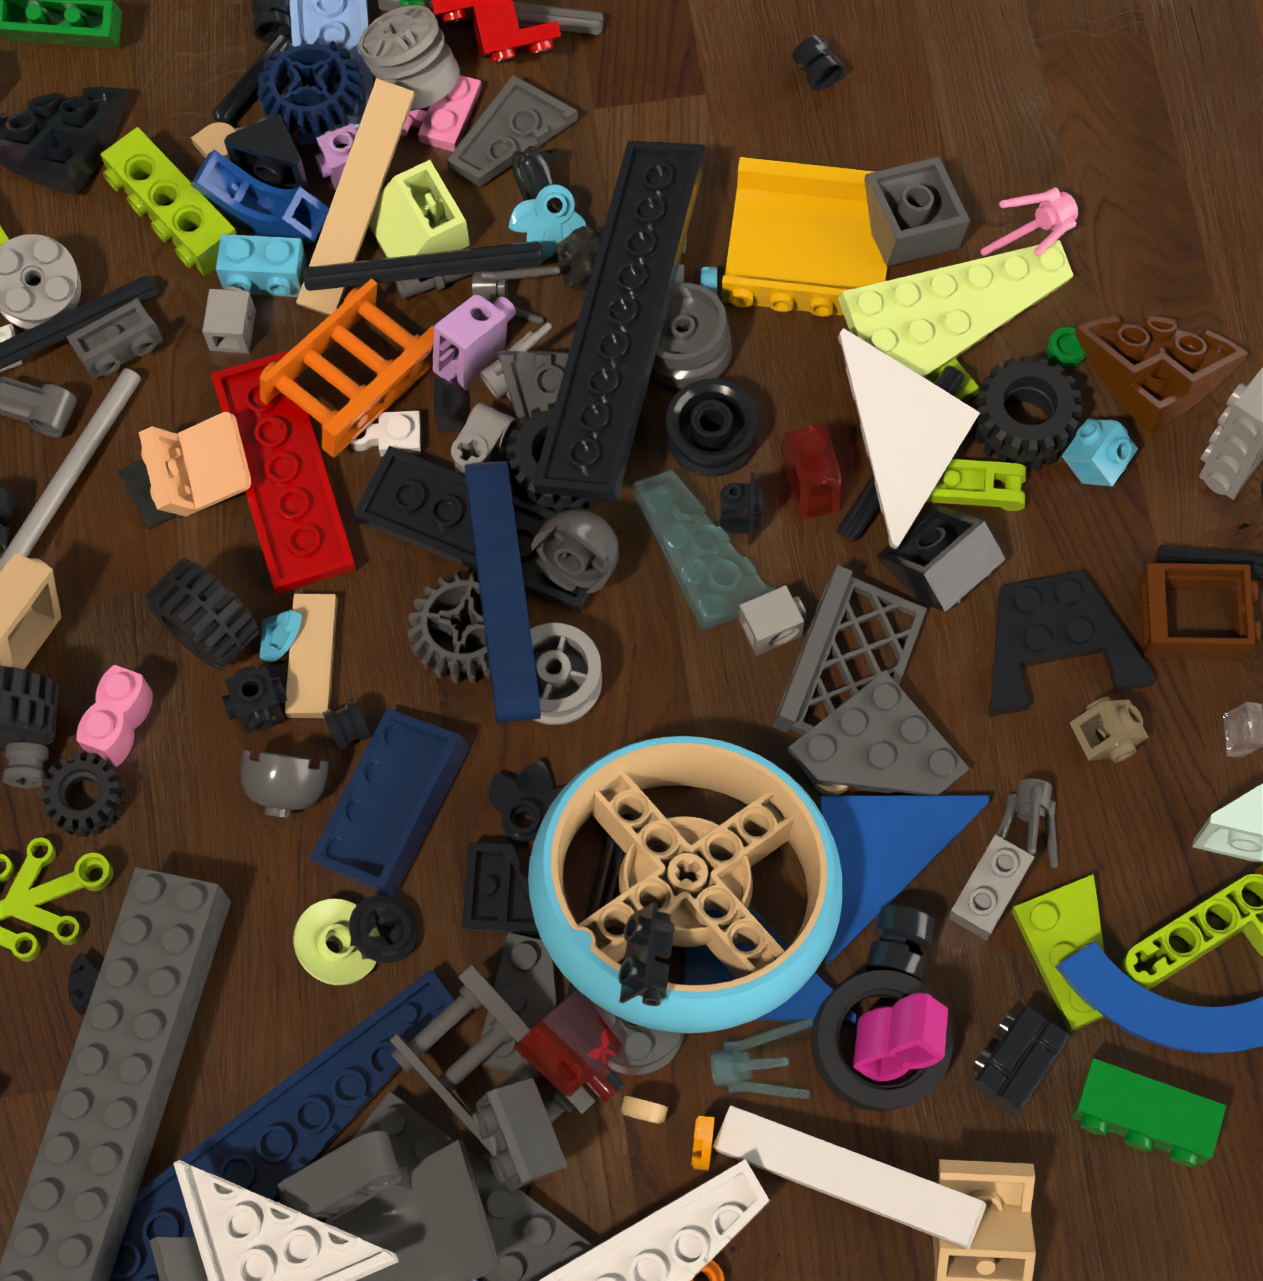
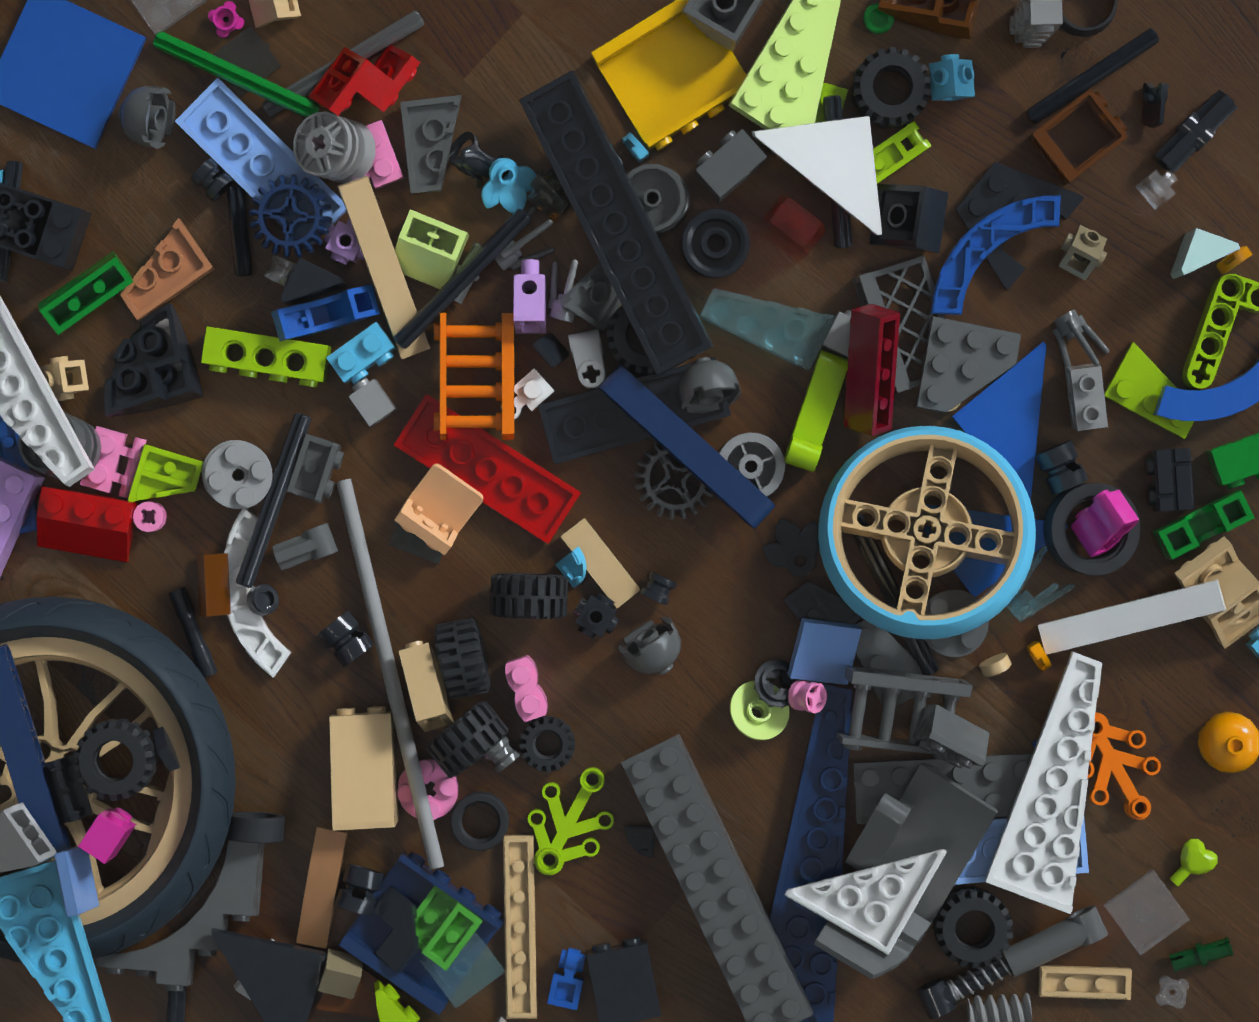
camera: 45 degrees left, 20 degrees up
(74, 623) = (462, 658): none -> black tyre
(156, 67) = (167, 273): none -> nougat wing
(213, 138) = (255, 291): tan tile -> none
(390, 803) = (718, 610): dark blue slope -> none
(412, 966) = (807, 696): none -> bright pink wheel
(463, 930) = (824, 651): none -> medium blue tile
(574, 1048) = (941, 669): clear red torso -> none
(647, 936) = (959, 614): black hinge -> none
(671, 677) = (816, 411): none -> lime beam
(741, 508) = (778, 283): black hinge -> none
(769, 663) = (871, 369): none -> dark red brick
(791, 358) = (729, 165): none -> dark grey brick
(992, 1136) = (1203, 523): none -> green arch
(1006, 634) = (982, 240): none -> blue tile

